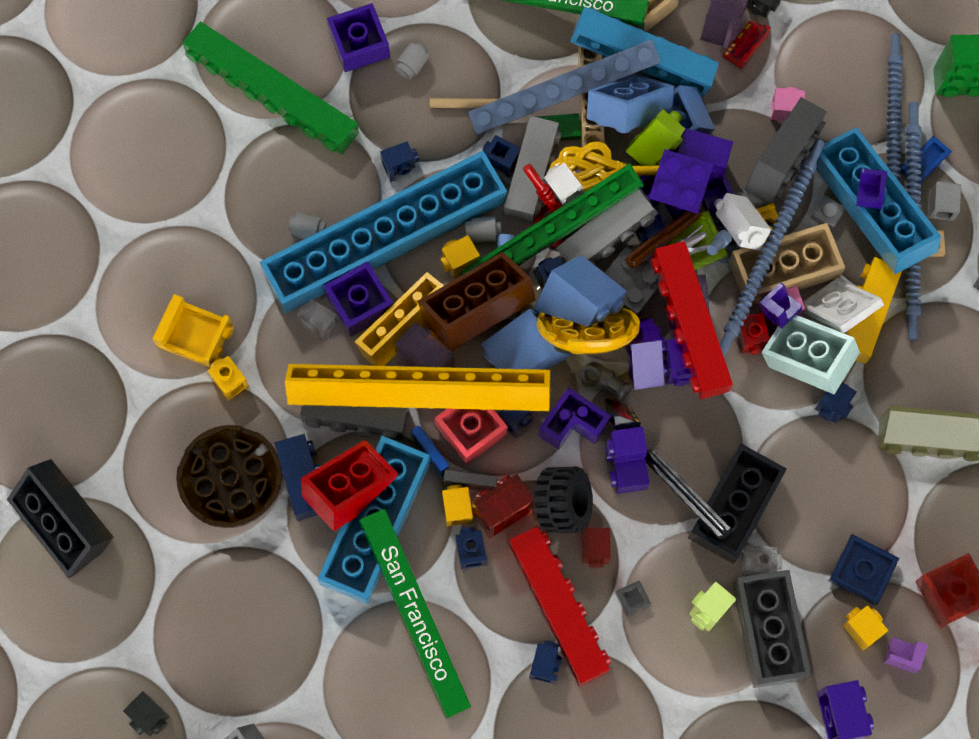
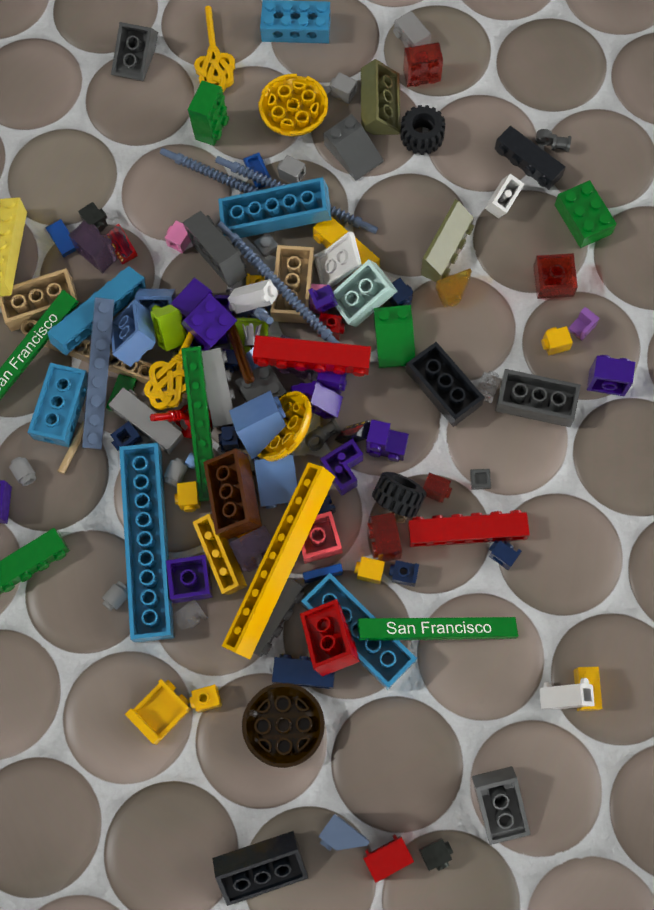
camera: 60 degrees left, 0 degrees up
(119, 656) = (388, 859): none -> red container
(126, 589) = (341, 835): none -> sand blue slope
(399, 160) = (95, 510): dark blue brick -> none
(470, 480) = (356, 554): dark grey tile -> none
(507, 62) = (48, 408): none -> dark azure brick
(563, 183) = (172, 400): white brick -> none
(687, 494) = (429, 411): black axle -> none
(710, 606) = (509, 428): yellowish green brick -> none
(776, 416) = (394, 335): none -> green slope
(863, 569) = (518, 325): dark blue plate -> none
(871, 188) = (270, 204): dark purple panel -> none
(877, 467) = (453, 288): none -> clear yellow slope

